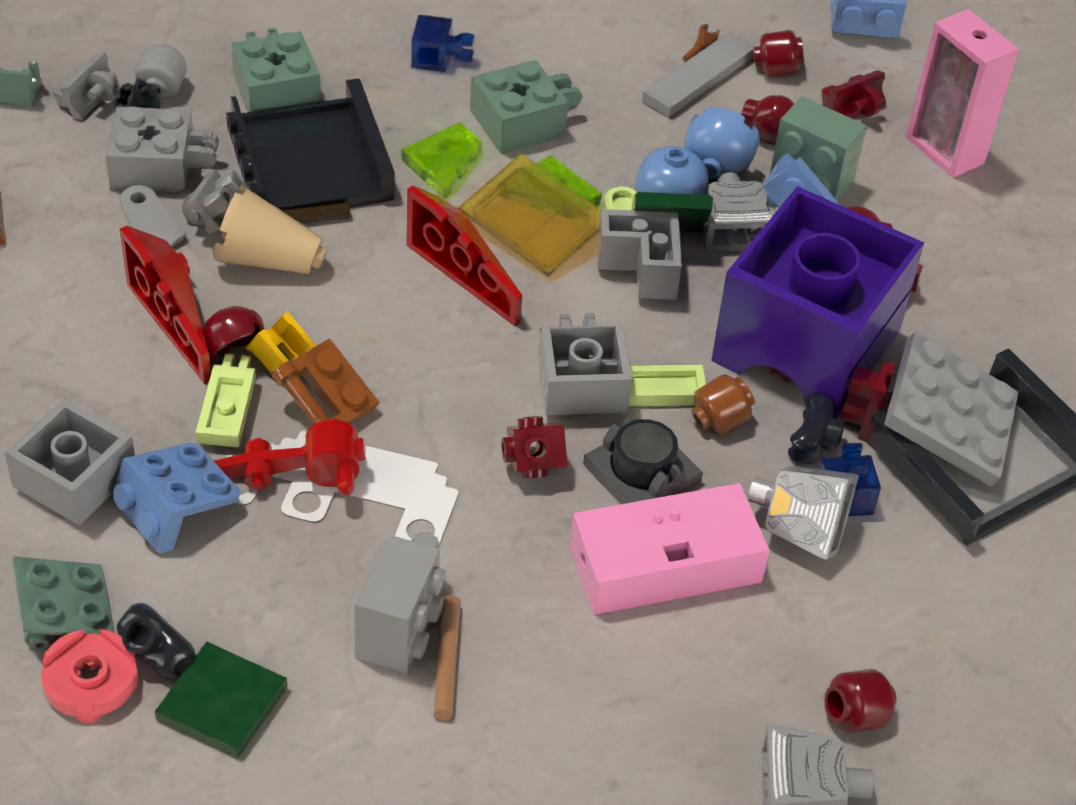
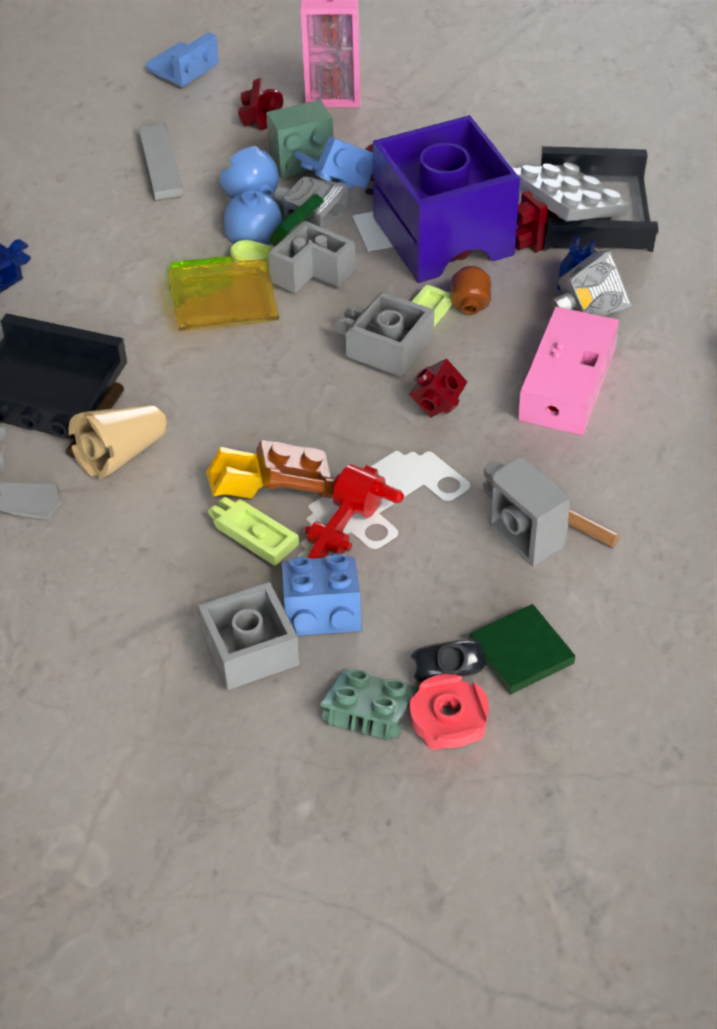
camera: 50 degrees left, 0 degrees up
(164, 289) = (126, 517): red wedge -> none
(211, 199) = (50, 445): light grey hips -> none
(231, 328) = (197, 494): dark red hair -> none
(443, 157) = (116, 315): clear neon green wing -> none
(457, 249) = (222, 345): red wedge -> none
(522, 105) = (110, 252): sand green hinge -> none
(643, 462) = (487, 350): piece -> none
(703, 41) = (131, 144): dark orange hand -> none
(766, 115) = (236, 141): dark red piece -> none
(779, 53) = (185, 115): dark red head -> none
(817, 431) = (522, 261): black piece -> none

